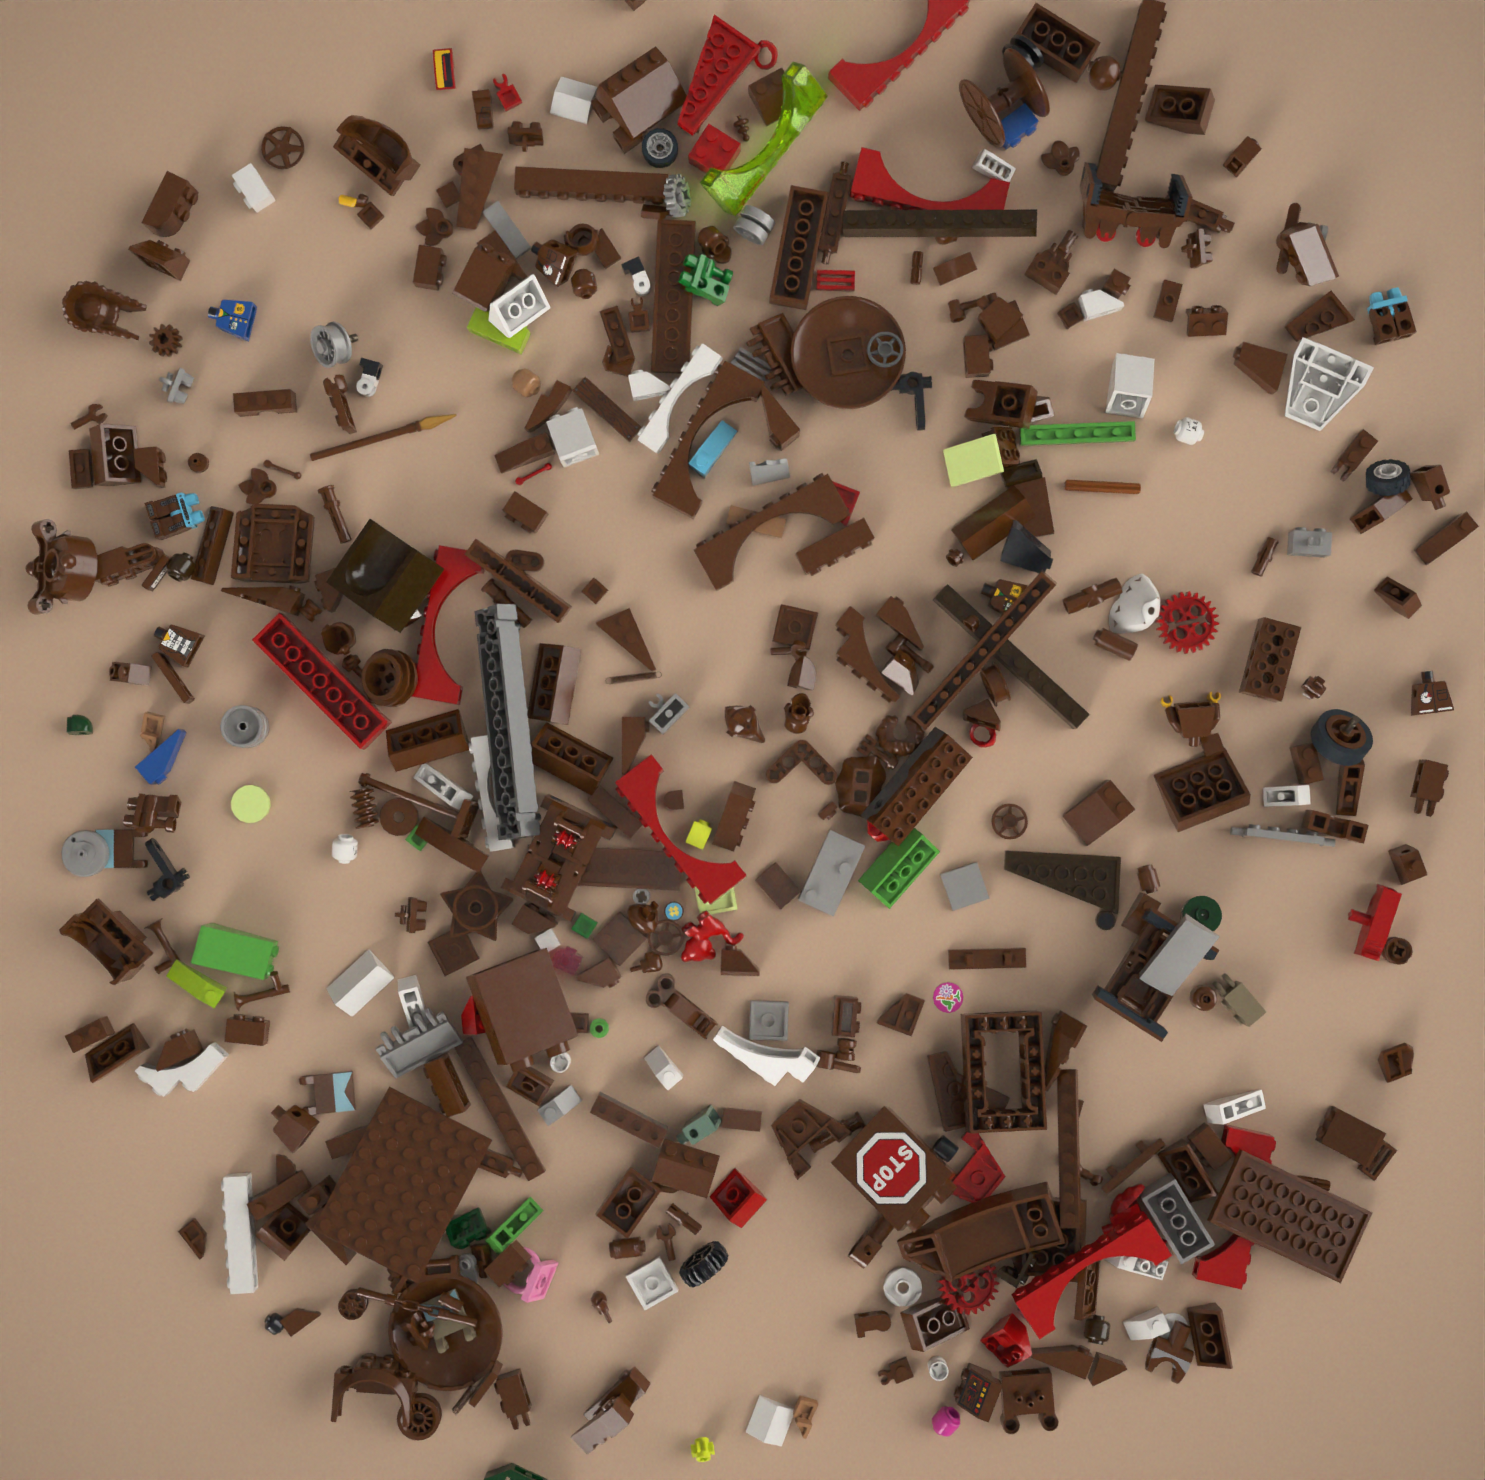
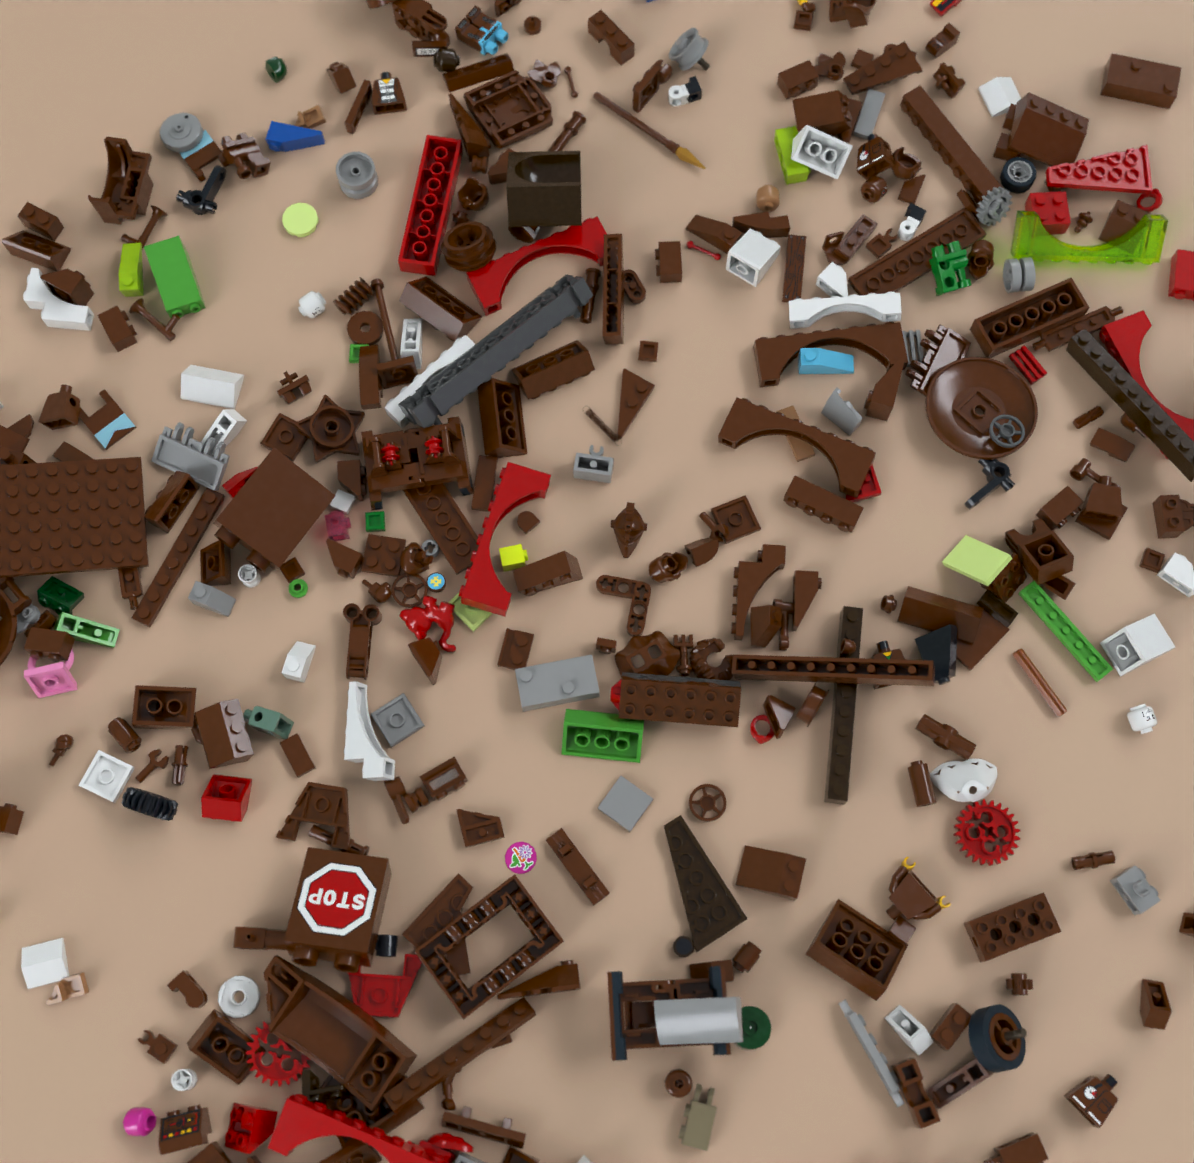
camera: 55 degrees right, 15 degrees down
(507, 95) = (967, 50): red plate -> none
(629, 1119) = (236, 661): reddish brown piece -> none
(633, 735) = (552, 455): reddish brown slope -> none

